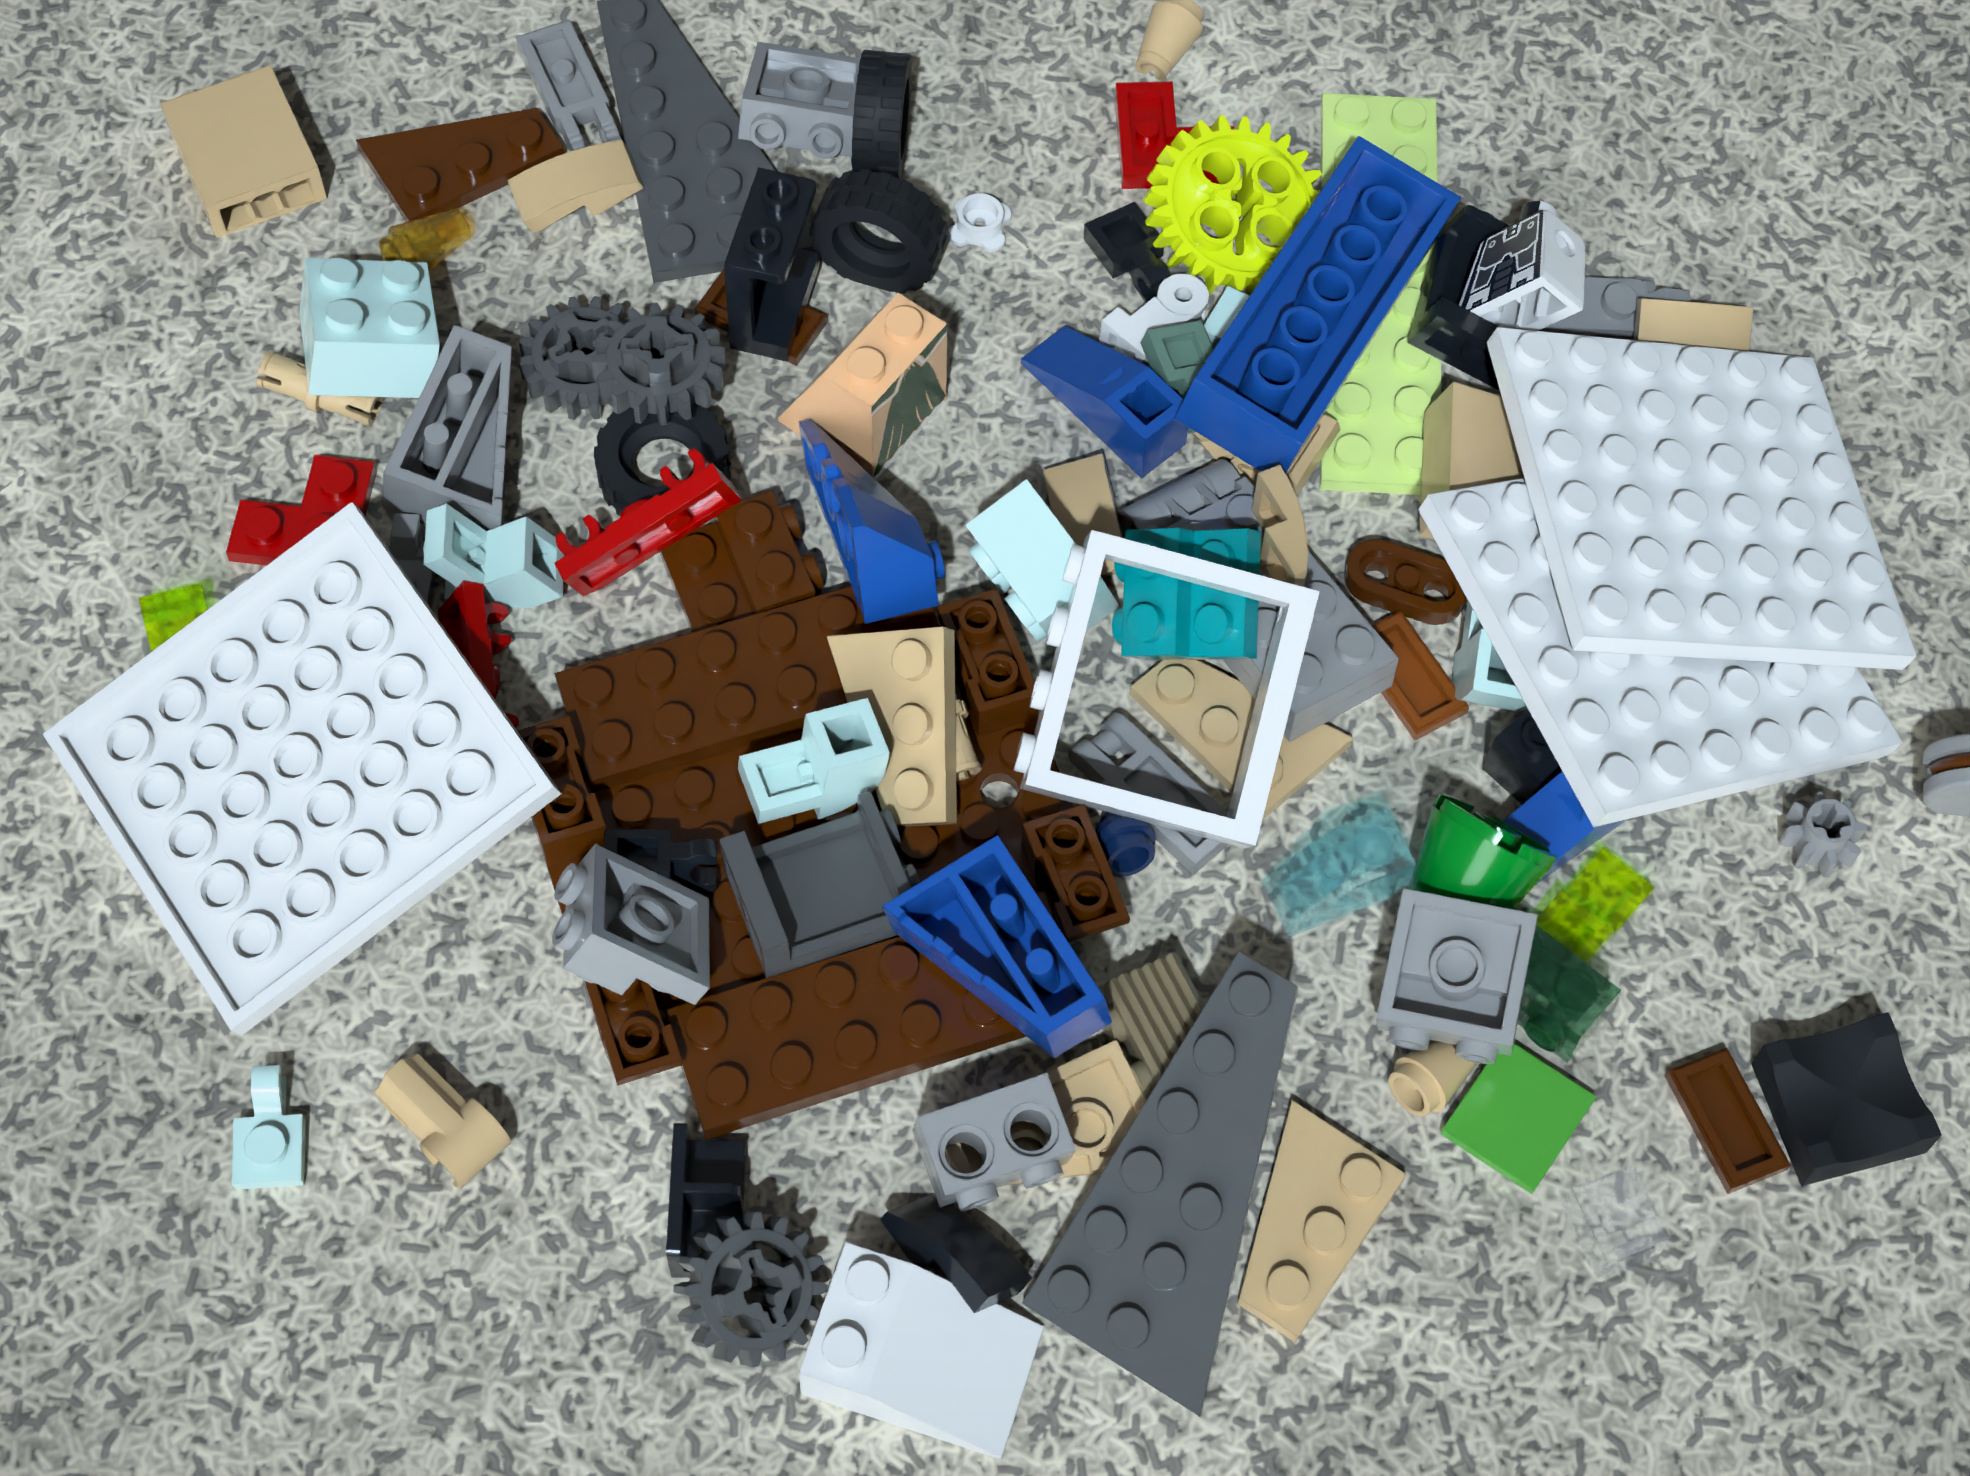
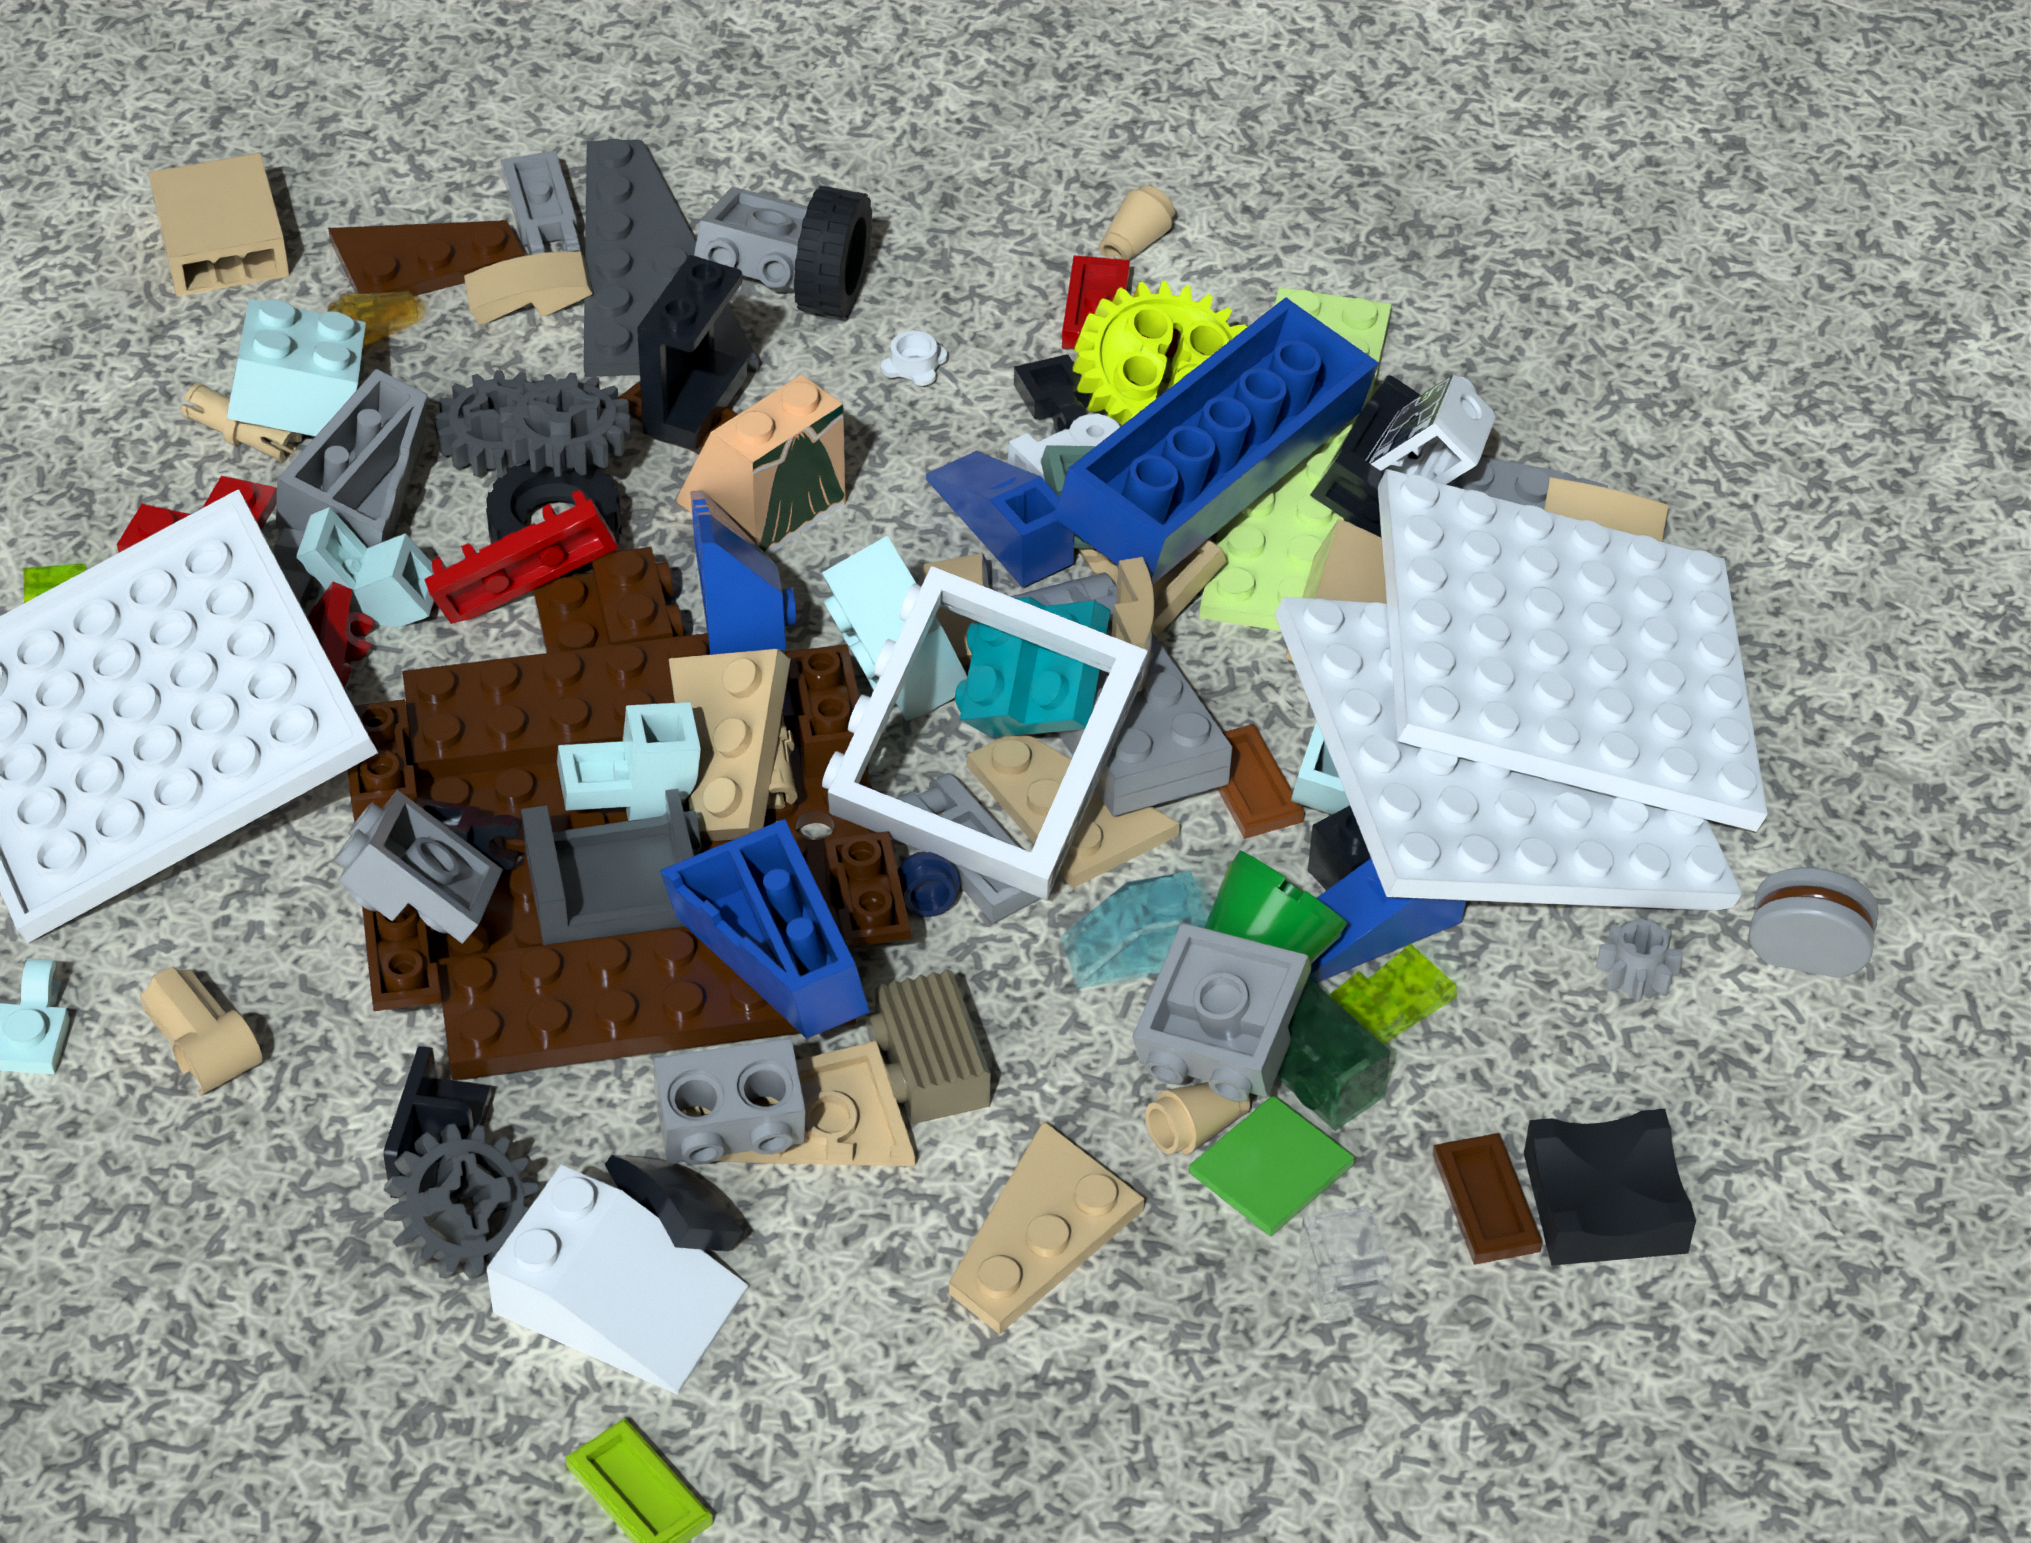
camera: 10 degrees right, 15 degrees down
(887, 204) = (821, 315): black tyre -> none
(1165, 1222) = (891, 1193): dark grey wing -> none
(1407, 578) = (1266, 701): reddish brown plate -> none

